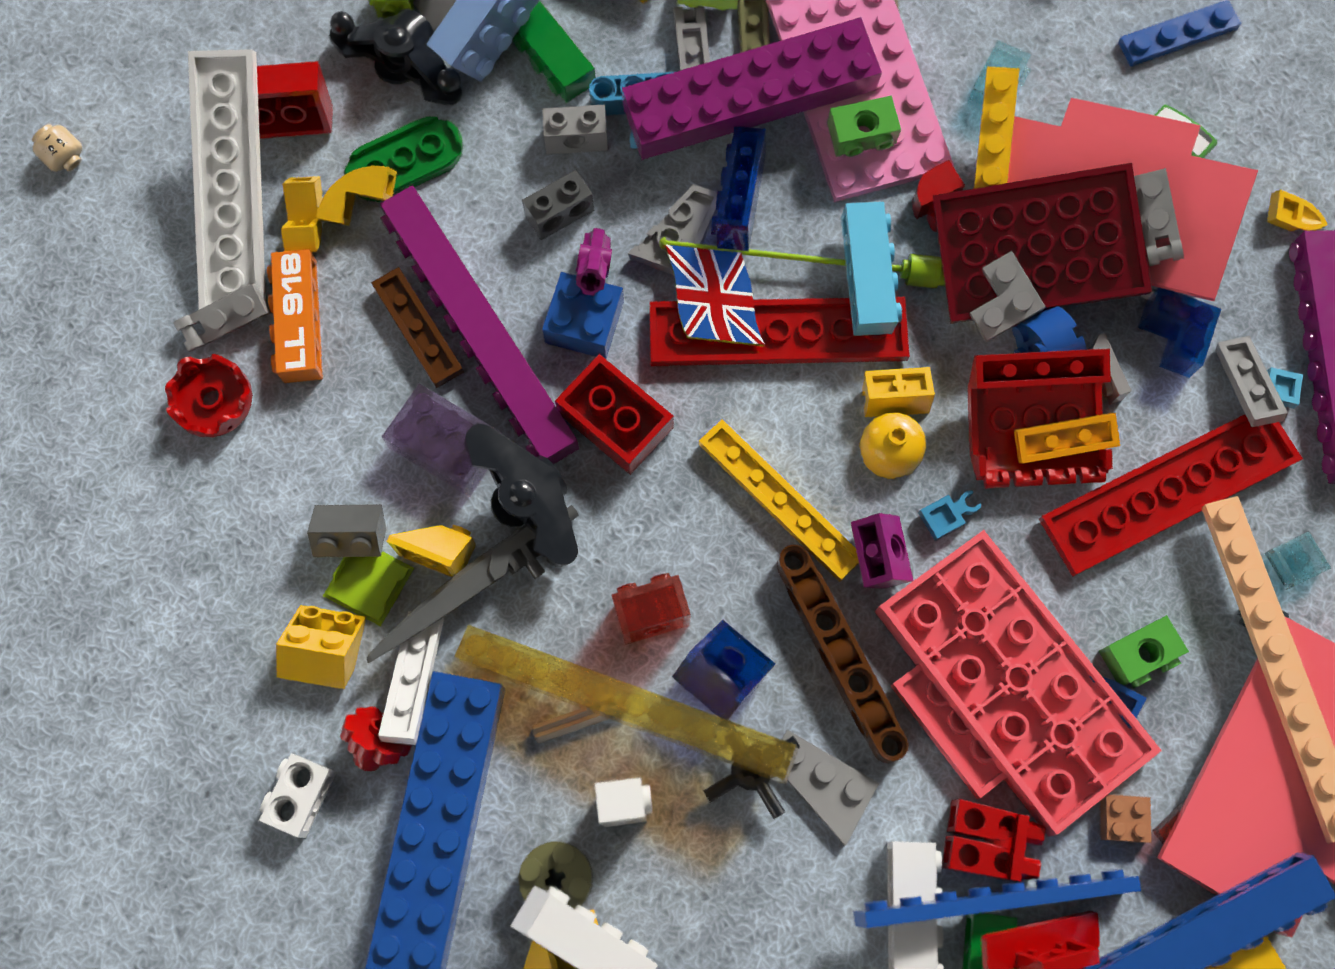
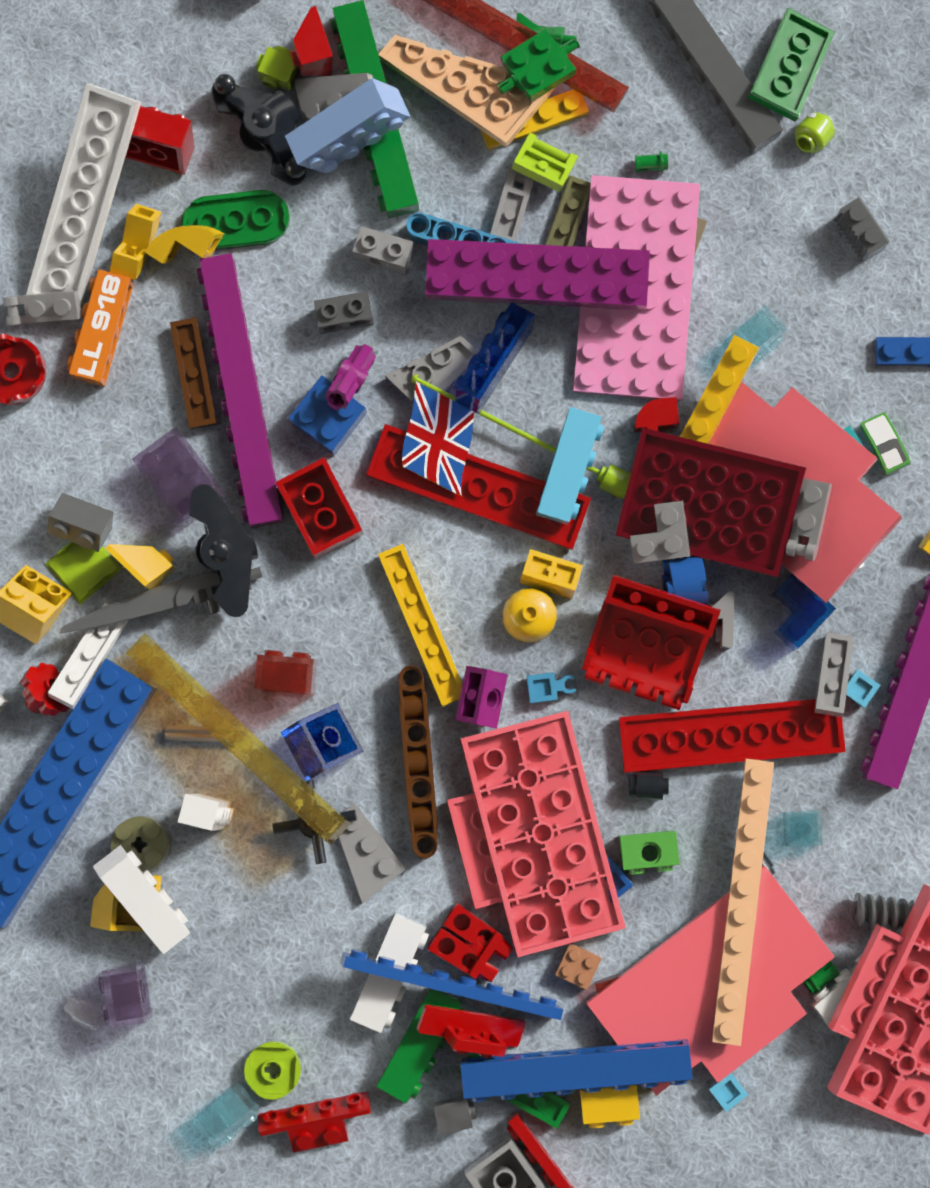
camera: 20 degrees right, 10 degrees up
(875, 114) = (633, 337): bright green brick -> none
(1067, 438) = (664, 664): light orange plate -> none
(1108, 580) = (648, 786): none -> black brick

